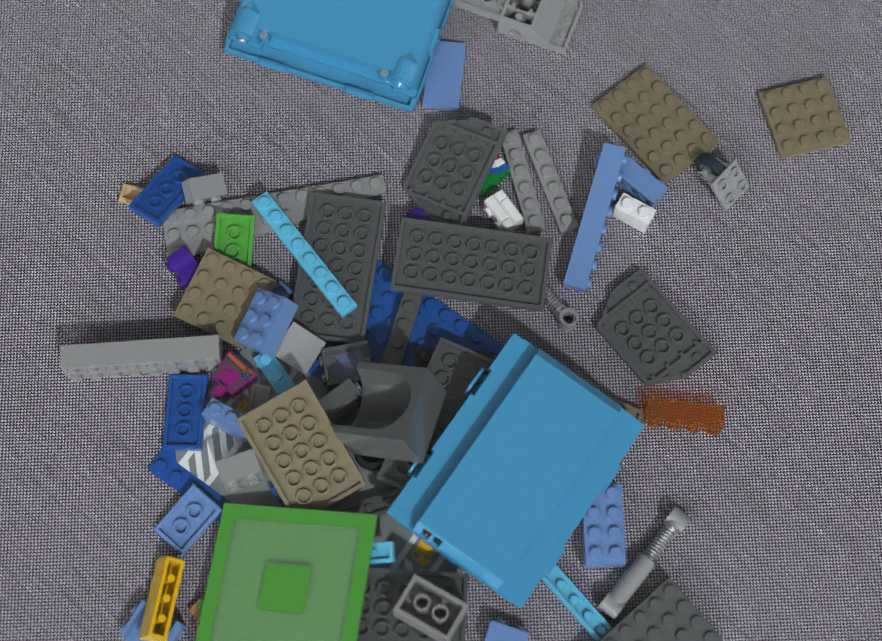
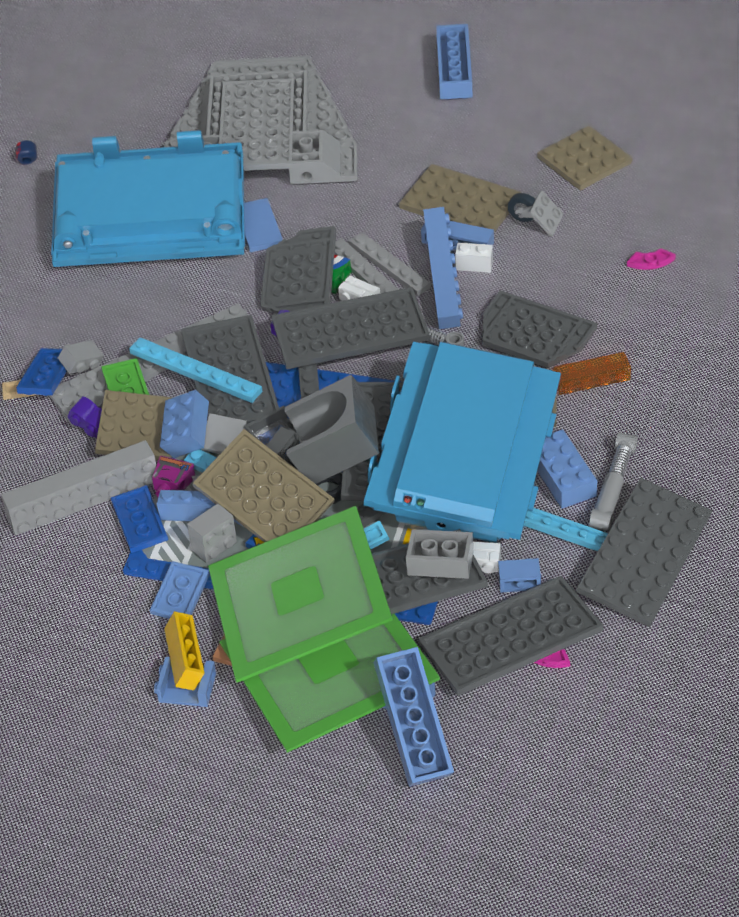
camera: 15 degrees left, 25 degrees down
(482, 601) = (487, 555): none -> white brick
(808, 286) = (651, 260): none -> dark pink tile

